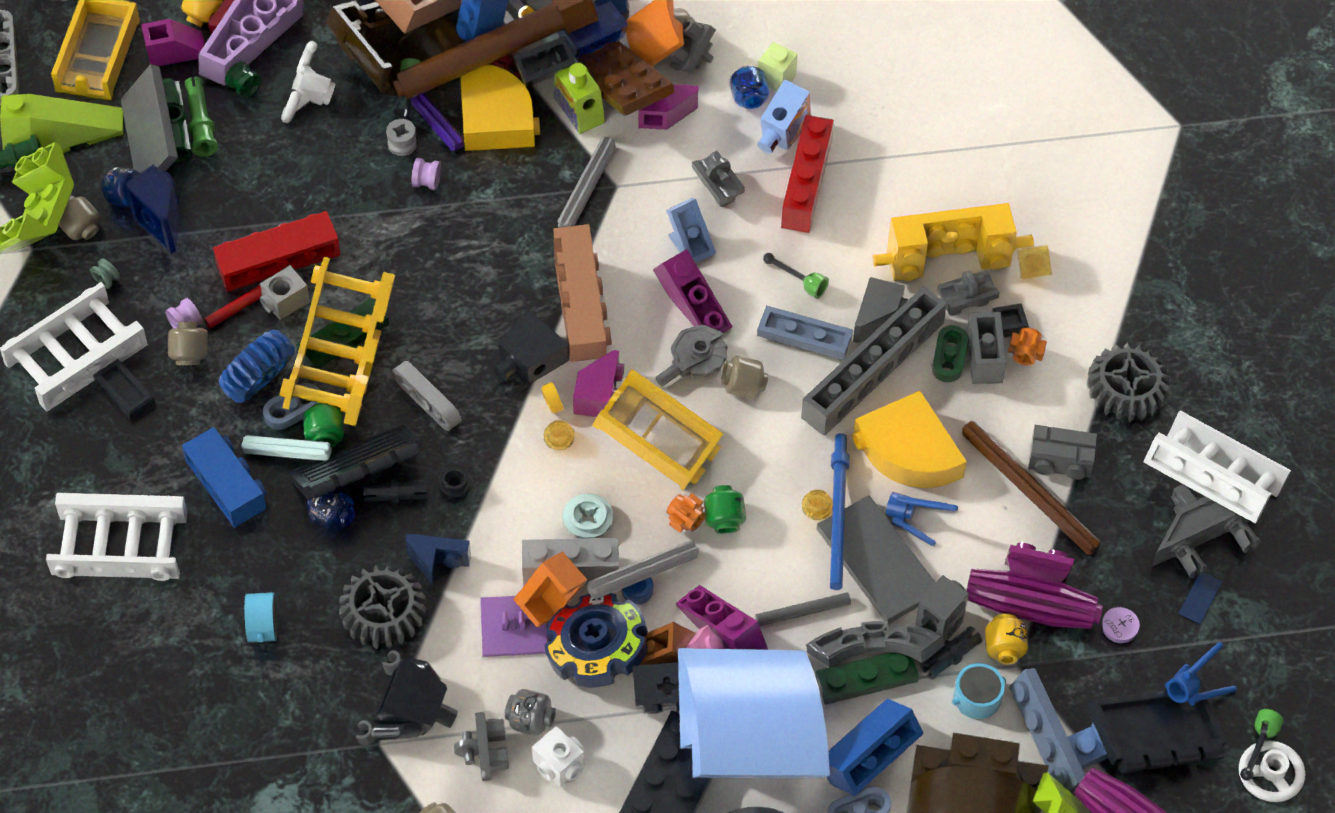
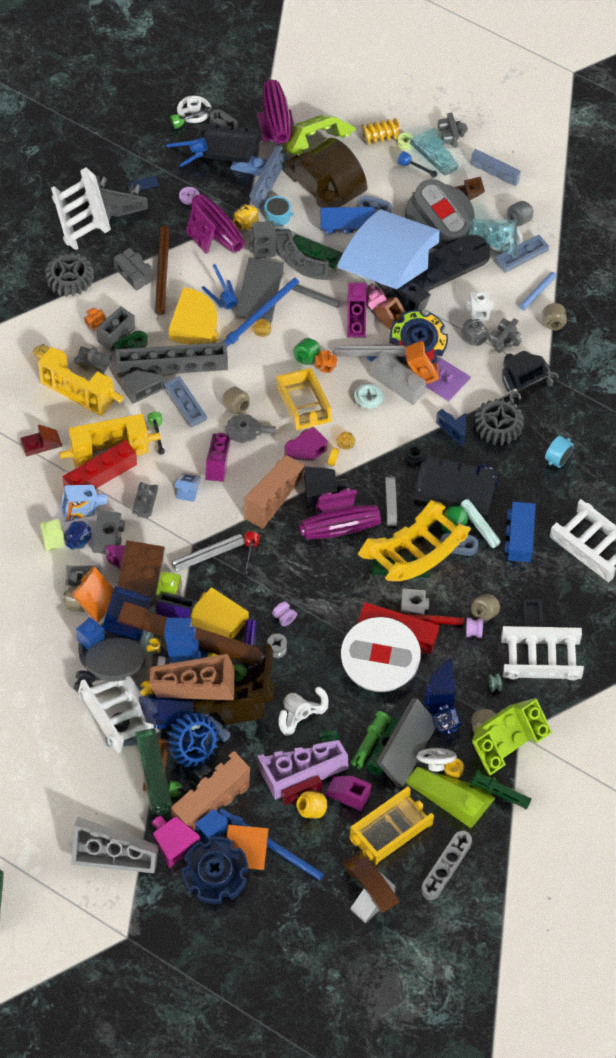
camera: 140 degrees left, 0 degrees up
(79, 157) = (454, 769): none -> yellow tile
(93, 137) = (437, 758): none -> white piece
(256, 366) = (464, 561): blue gear -> none
(262, 193) = (380, 654): none -> white piece
(471, 320) = (339, 516): none -> magenta plate
(547, 225) = (251, 540): none -> hinge
(721, 116) = (107, 522): none -> dark grey brick
(813, 228) = (108, 434): none -> yellow brick
(915, 165) = (44, 440): none -> dark red slope
(1012, 318) = (84, 339): black tile -> none
(1208, 781) = (225, 119): none -> dark grey beam

